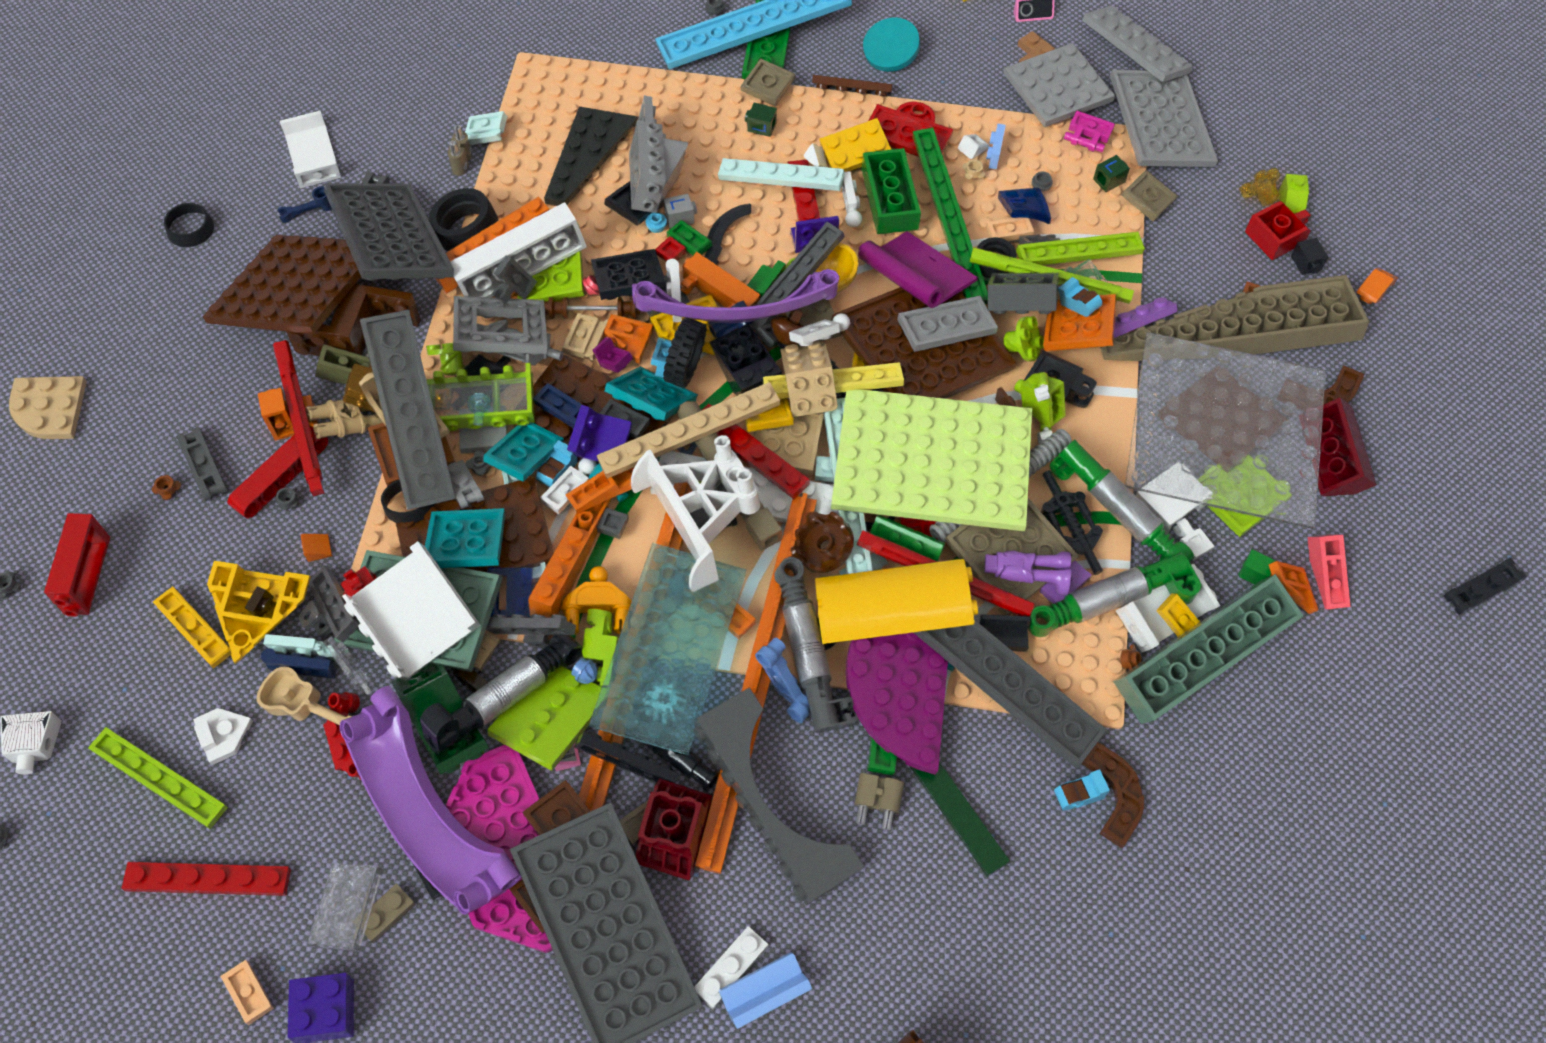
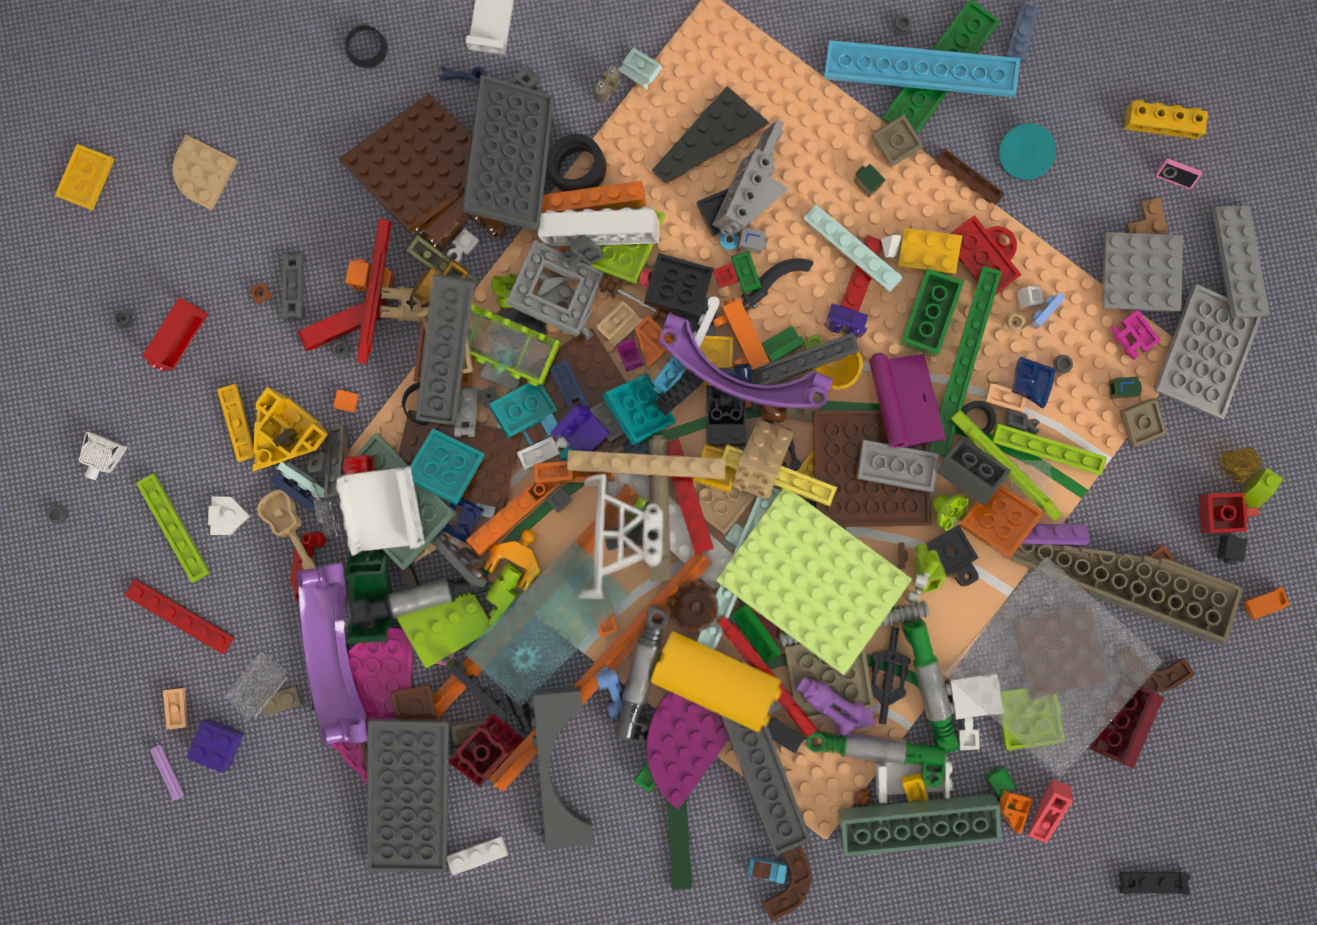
camera: 30 degrees right, 25 degrees up
(584, 671) = (482, 608): medium blue plate -> none
(764, 990) = (489, 885): light blue panel -> none
(820, 330) = (793, 424): white plate -> none
(851, 201) = (887, 321): white plate -> none
(878, 794) = (632, 797): dark tan piece -> none
(1078, 298) = (1012, 502): medium azure leg -> none

